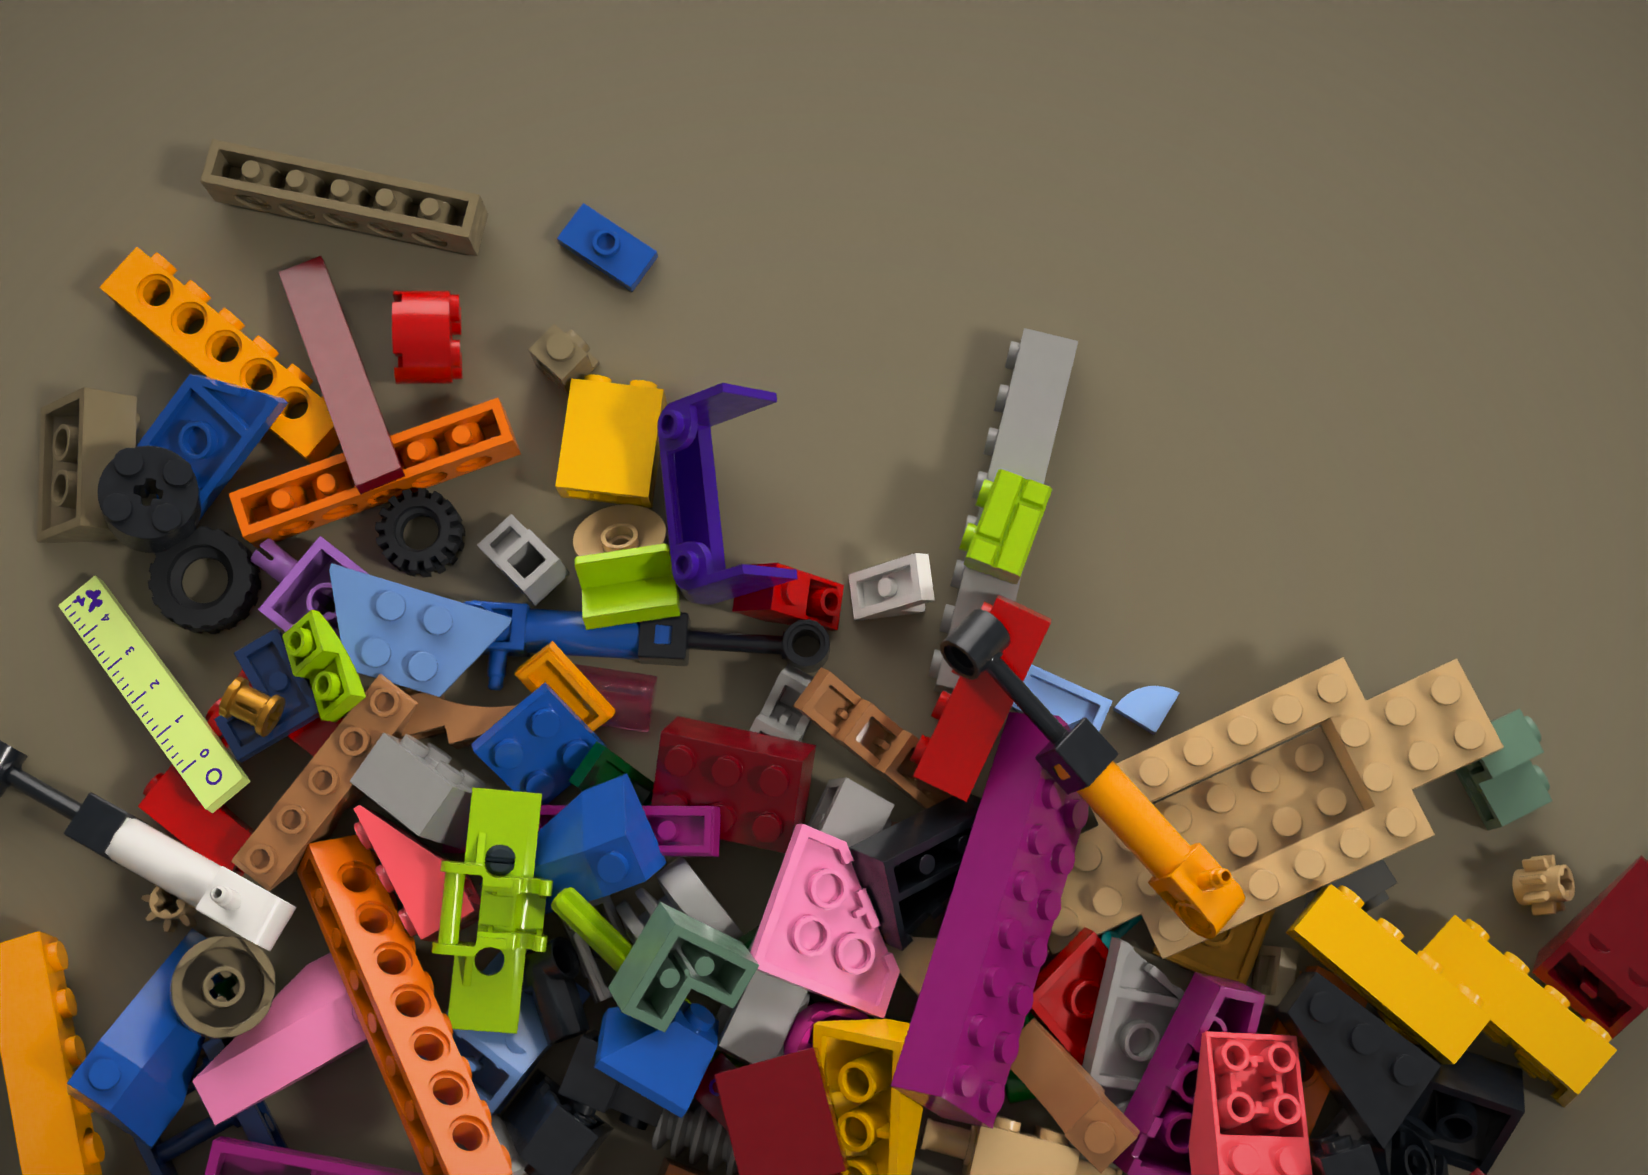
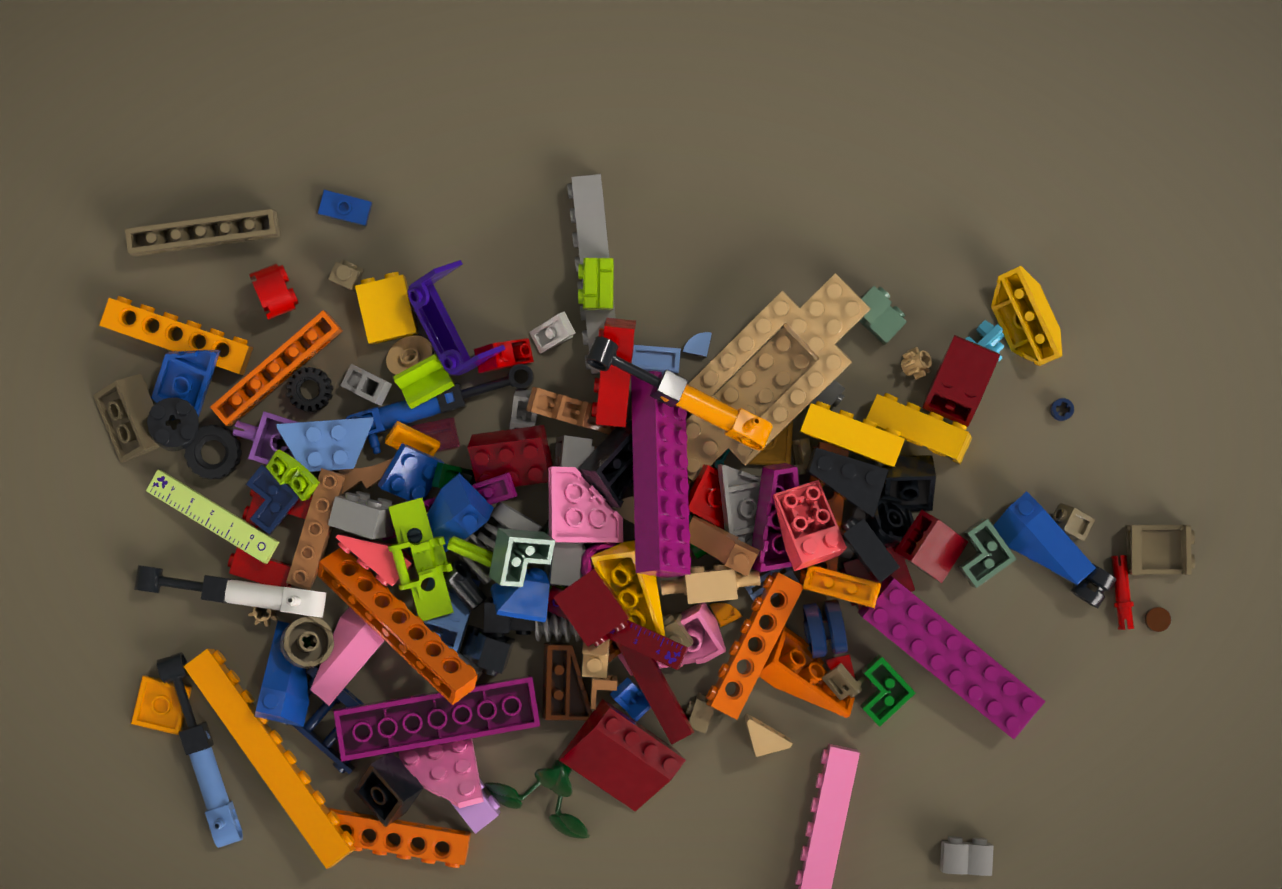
camera: 20 degrees left, 10 degrees up
(251, 706) = (266, 507): pearl gold bush -> none
(341, 375) = (239, 325): tile -> none

